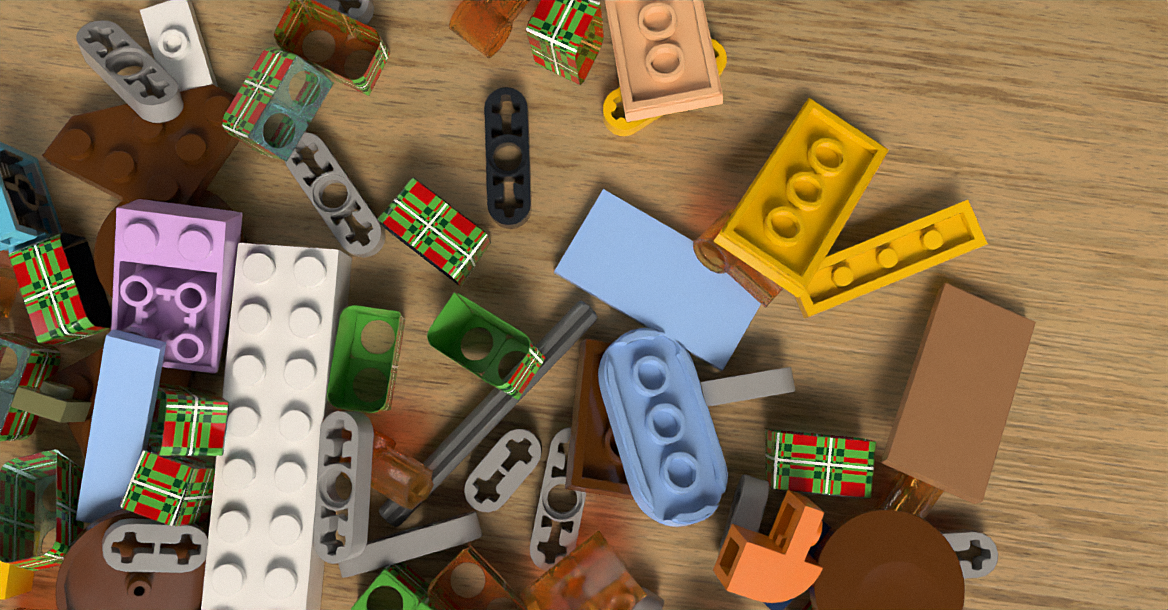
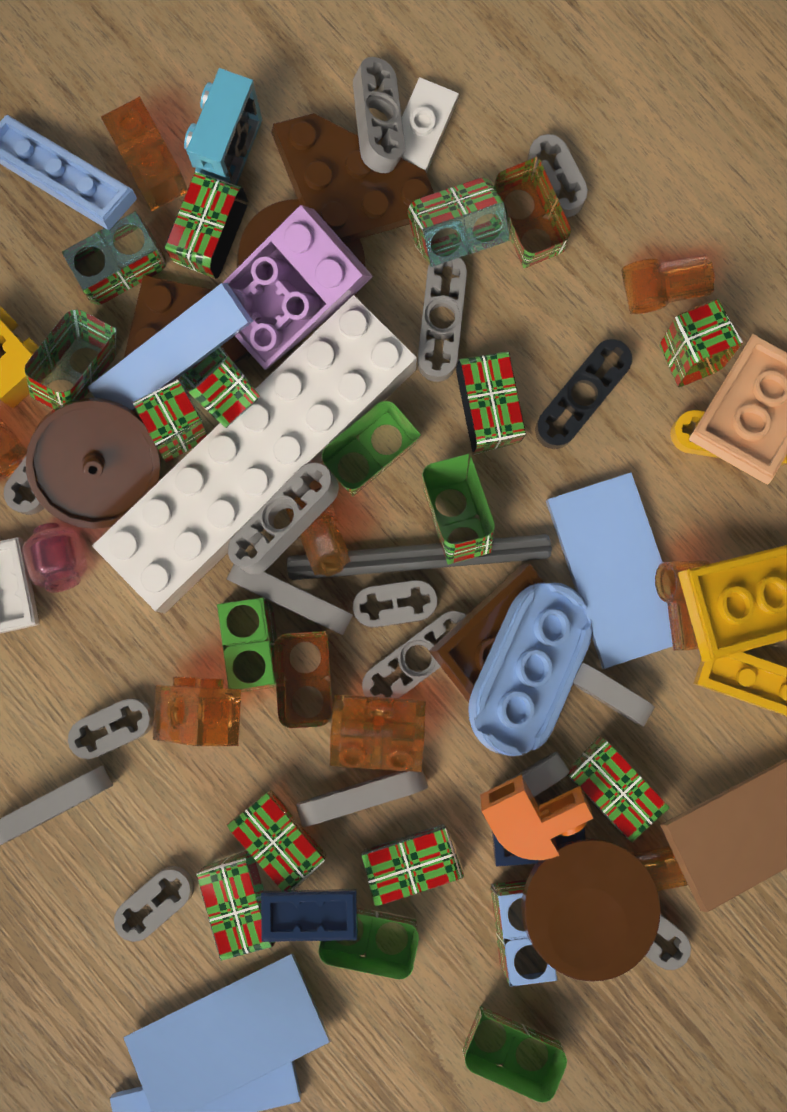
camera: 45 degrees right, 0 degrees up
(52, 402) = (141, 294): olive plate -> none
(154, 558) = (120, 456): light grey beam -> none

